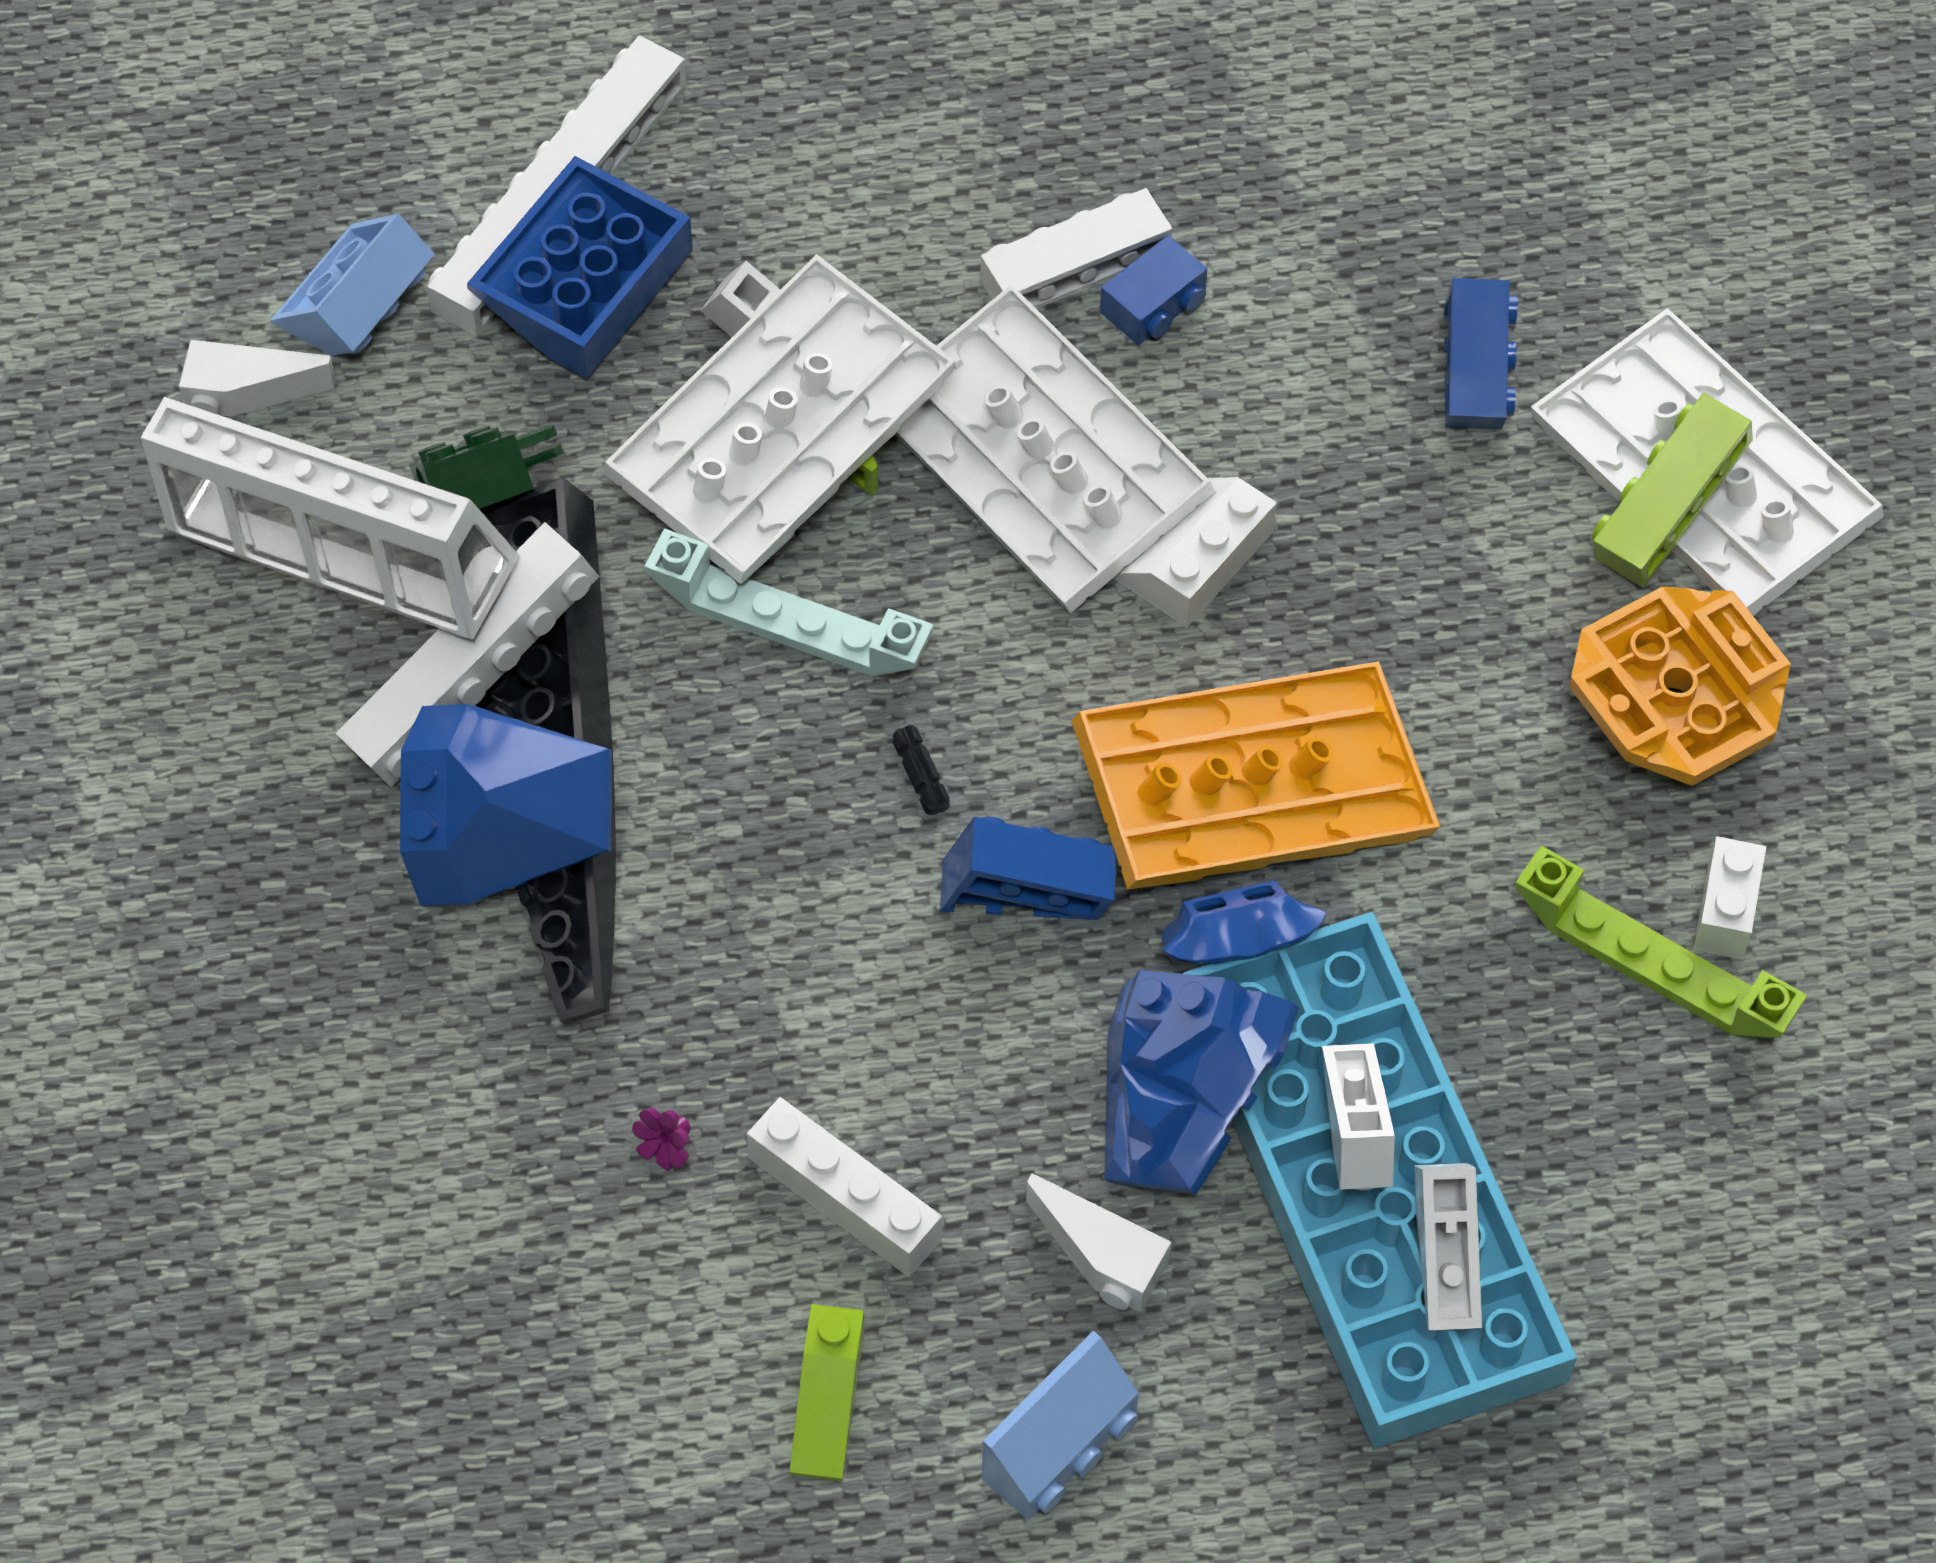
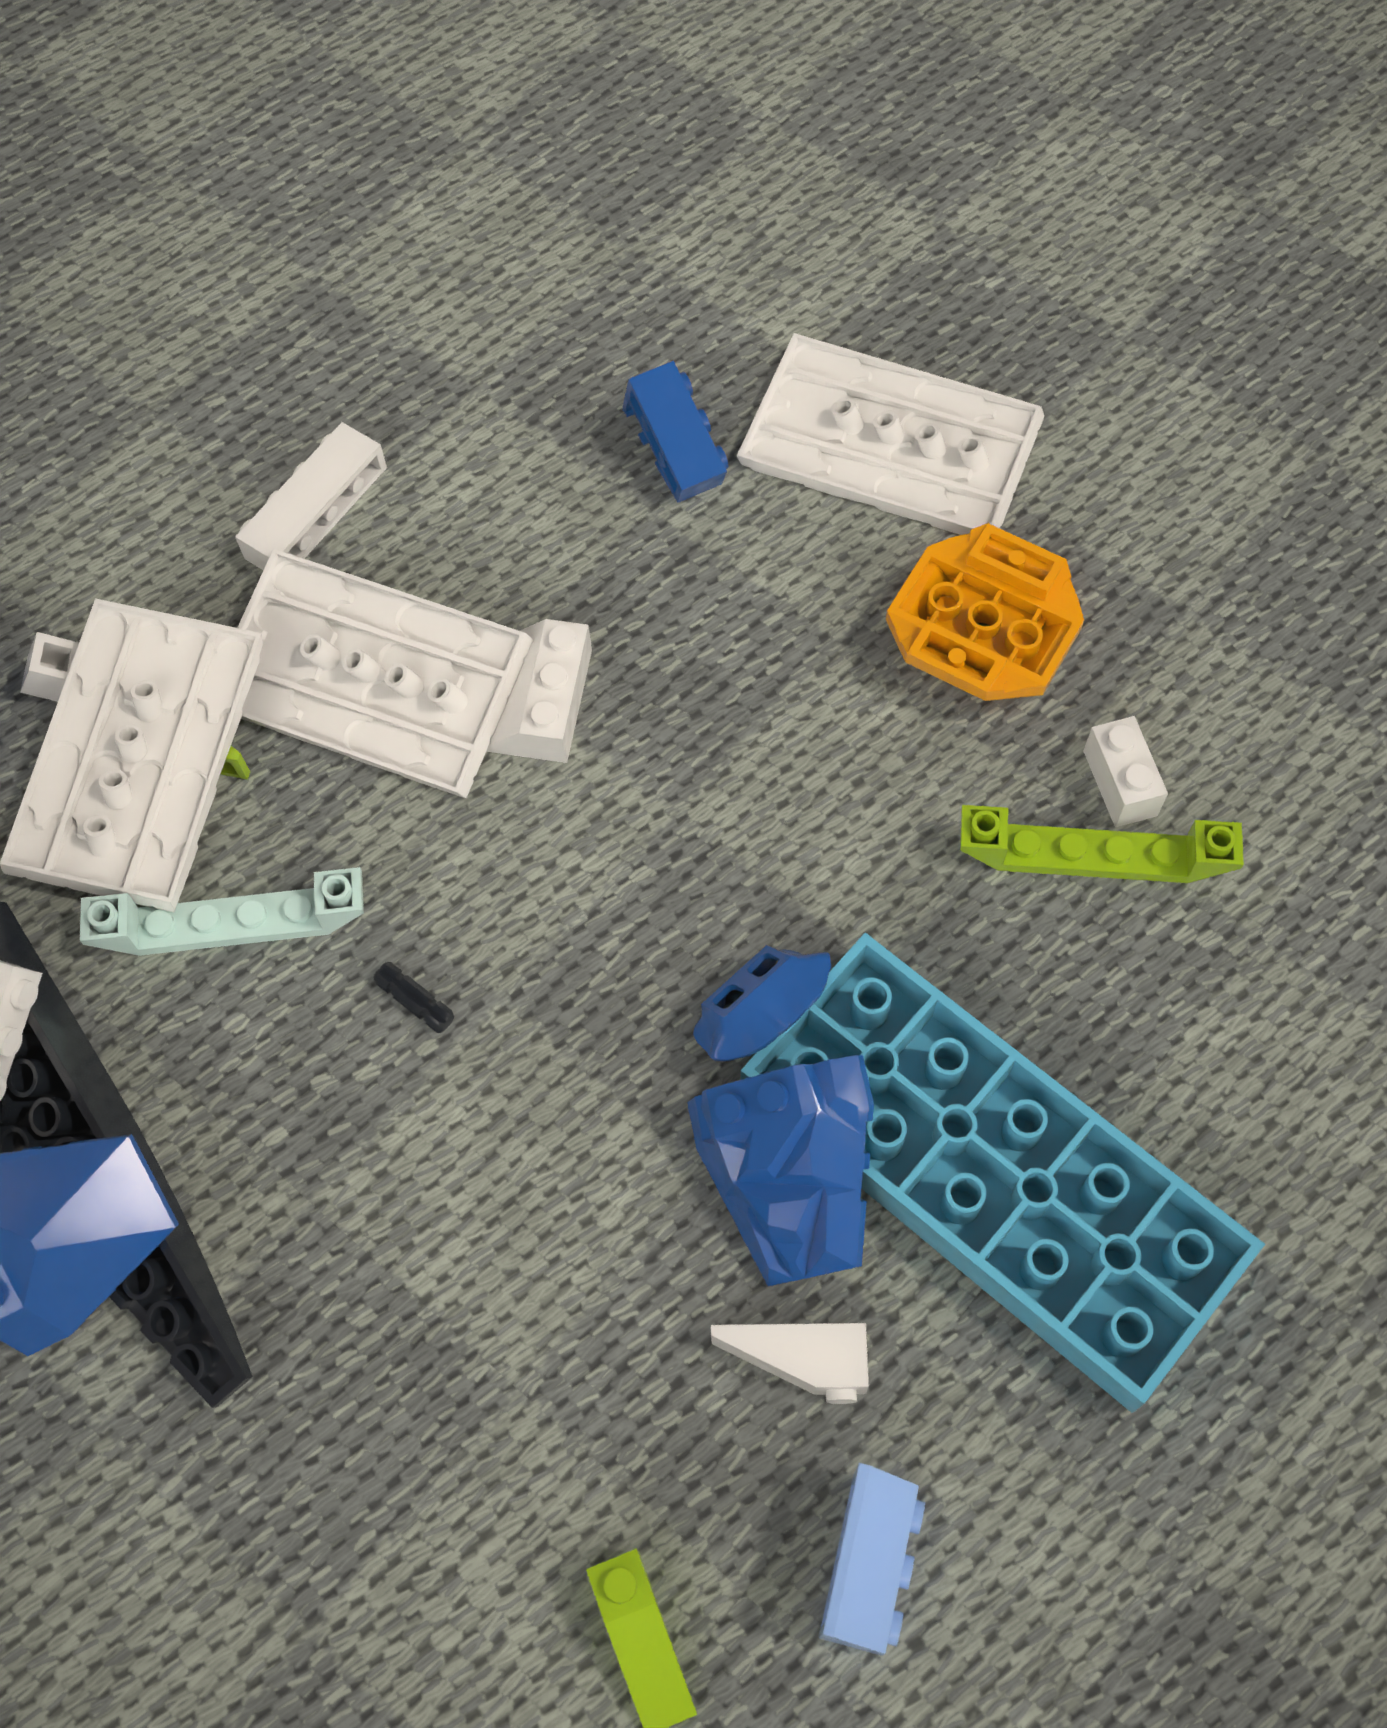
camera: 25 degrees left, 5 degrees up
(663, 1136) = (363, 1466): magenta plant -> none
(844, 1186) = (550, 1425): white brick -> none
(1030, 869) = (554, 1042): blue wedge -> none
(1154, 291) = (391, 501): brick -> none
(1254, 775) = (692, 864): light orange piece -> none
(1358, 1117) = (967, 1126): white slope -> none
(1449, 1245) = (1108, 1201): white slope -> none
(1671, 489) = (887, 466): lime brick -> none

